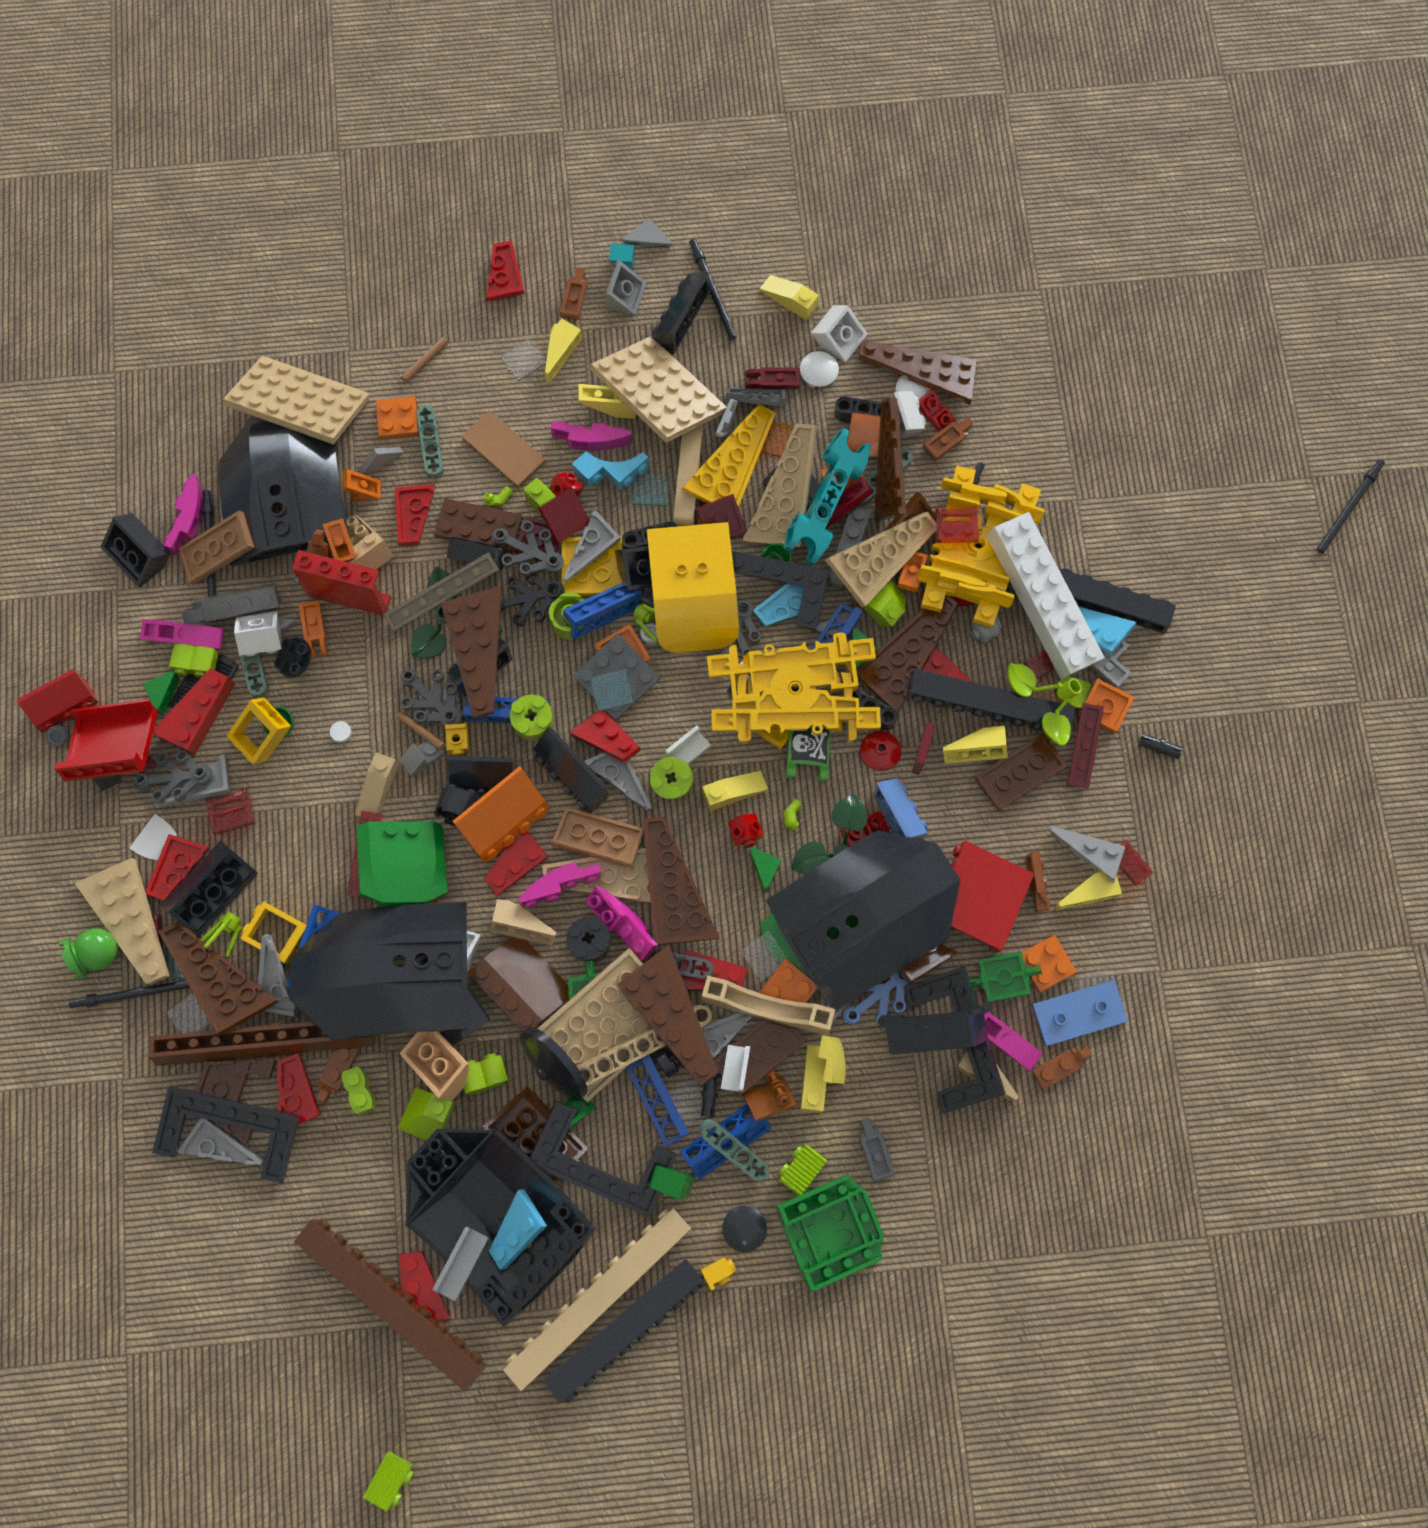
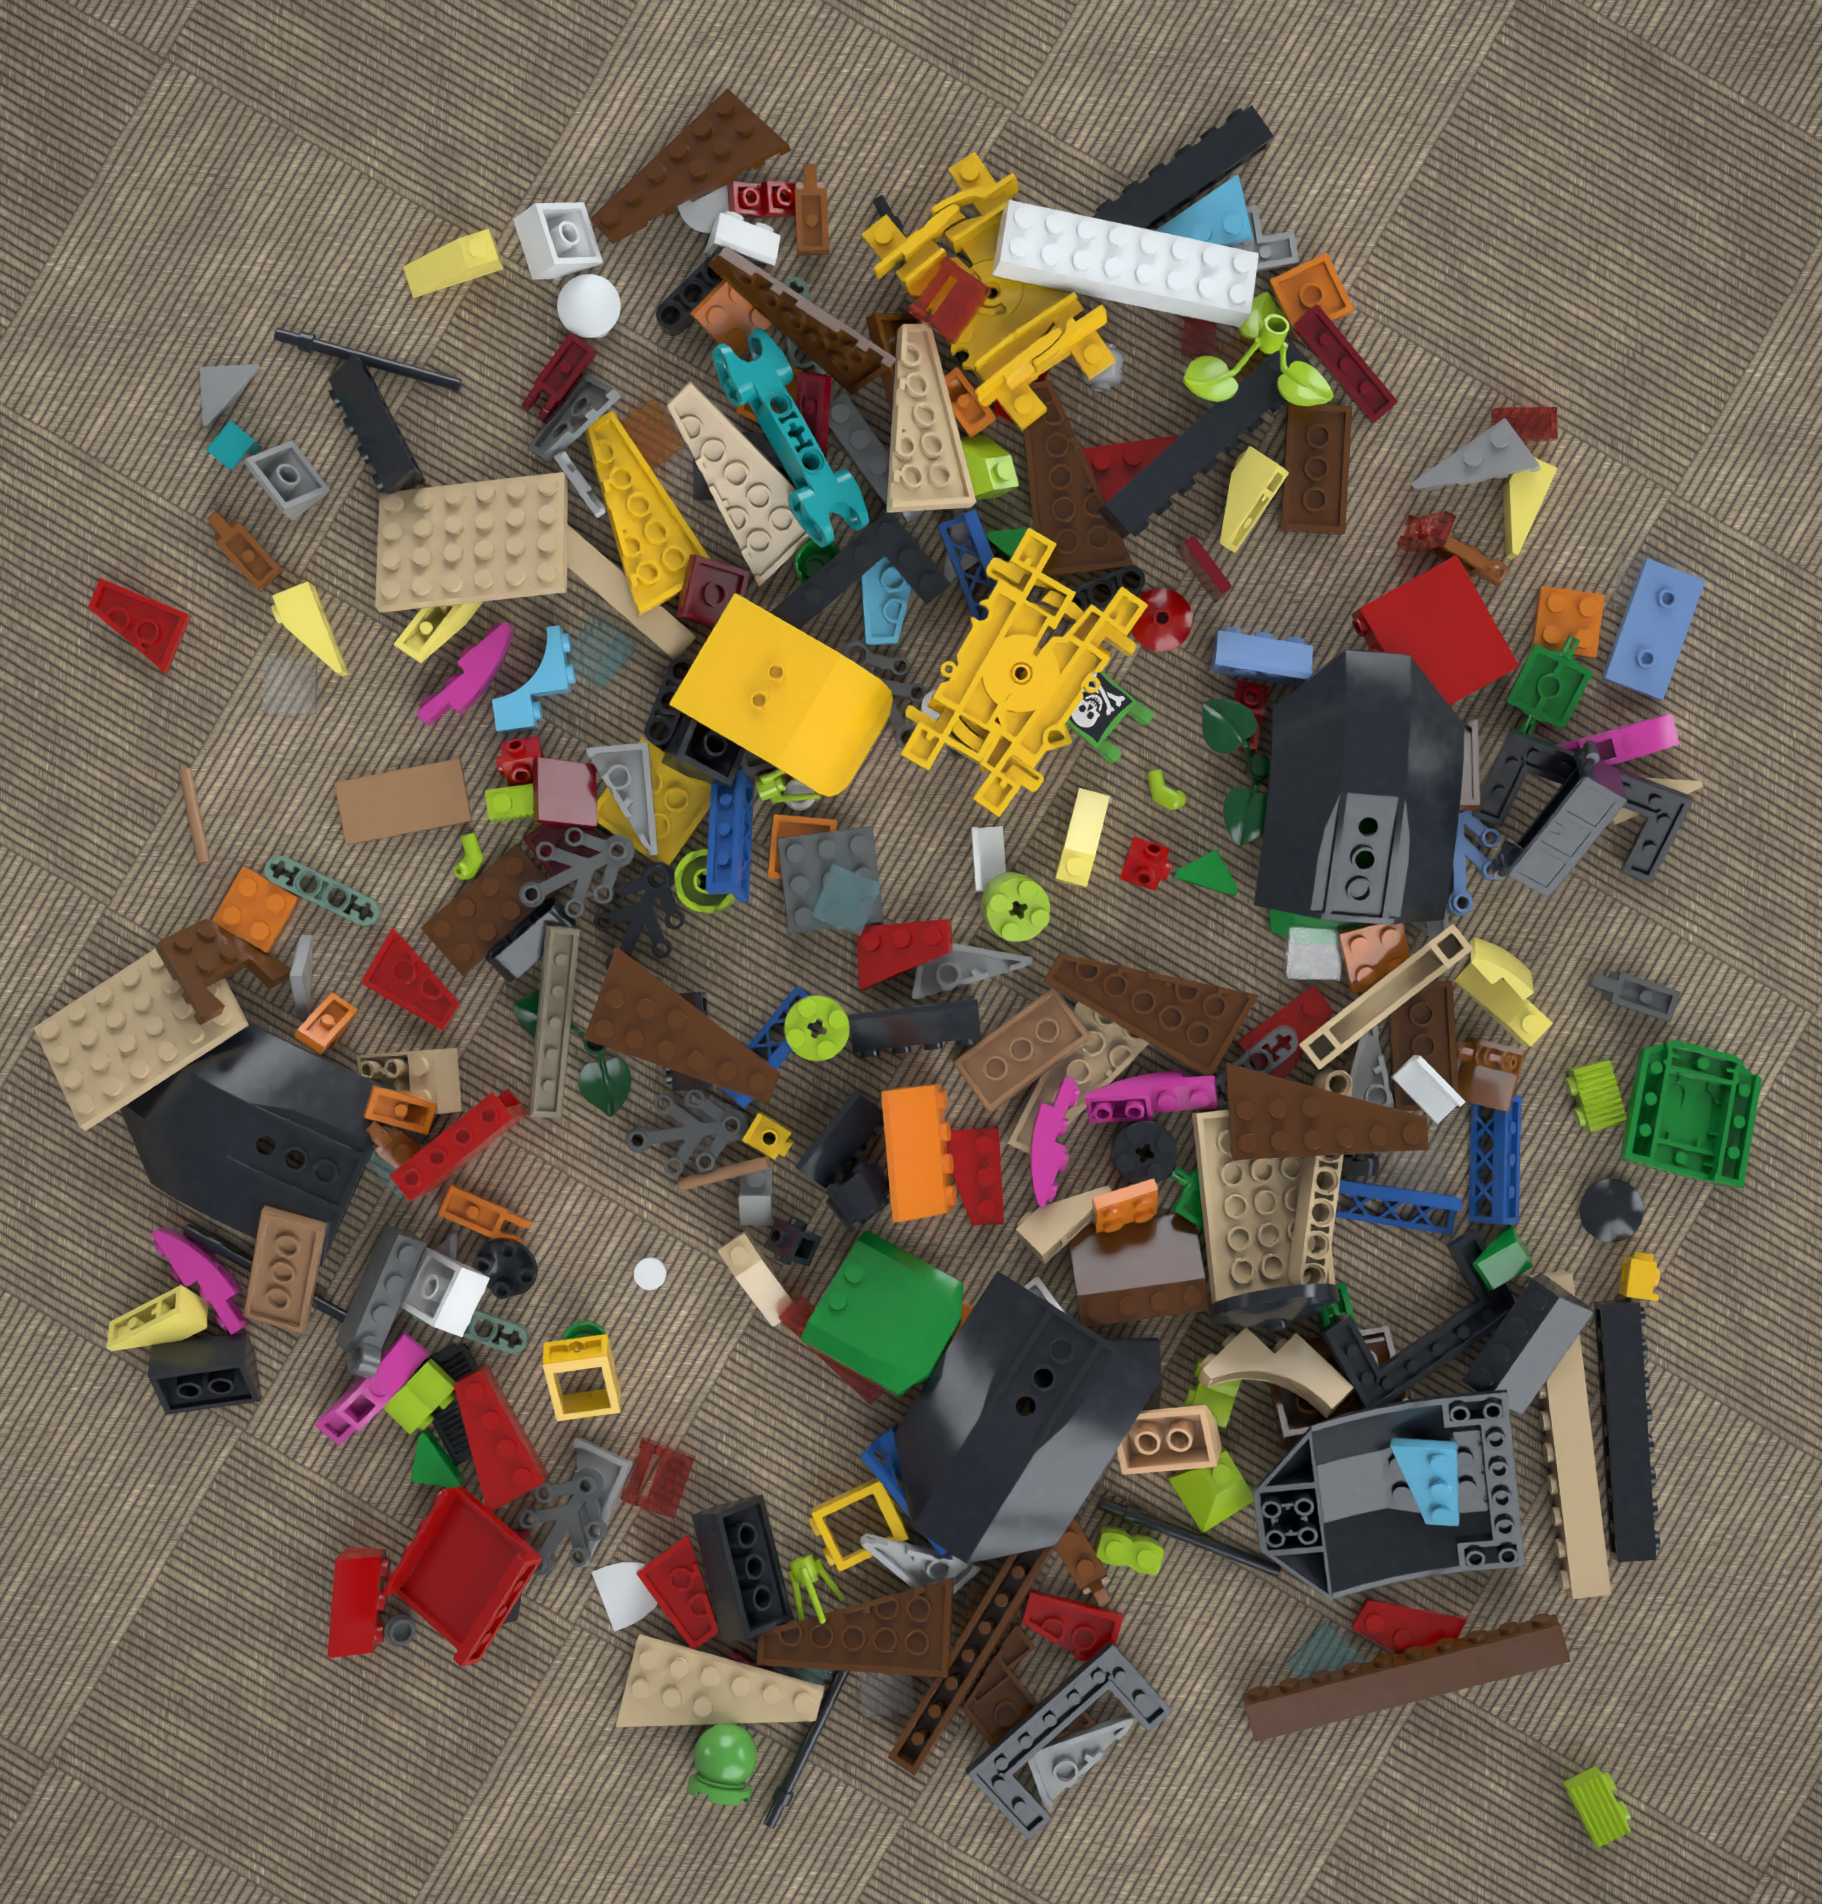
camera: 50 degrees left, 15 degrees up
(148, 509) = (159, 1321): none -> light yellow slope
(356, 405) = (209, 954): none -> reddish brown wing
(375, 1249) = (1323, 1652): none -> clear light blue piece
(380, 1080) = (1131, 1515): none -> black bar
(408, 789) = (792, 1242): none -> black brick
(461, 1264) = (1421, 1565): light grey panel -> none
(524, 1100) = (1289, 1365): none -> tan arch
(551, 948) = (1124, 1206): none -> orange plate
(633, 1230) = (1529, 1342): none -> black slope
(709, 1098) = (1441, 1148): black pin -> none
(733, 1151) = (1520, 1156): sand green beam -> none
(1032, 846) = (1426, 531): none -> clear red plate
(1060, 1066) = (1697, 701): dark orange hinge -> none
(1160, 746) = (1409, 269): black pin -> none

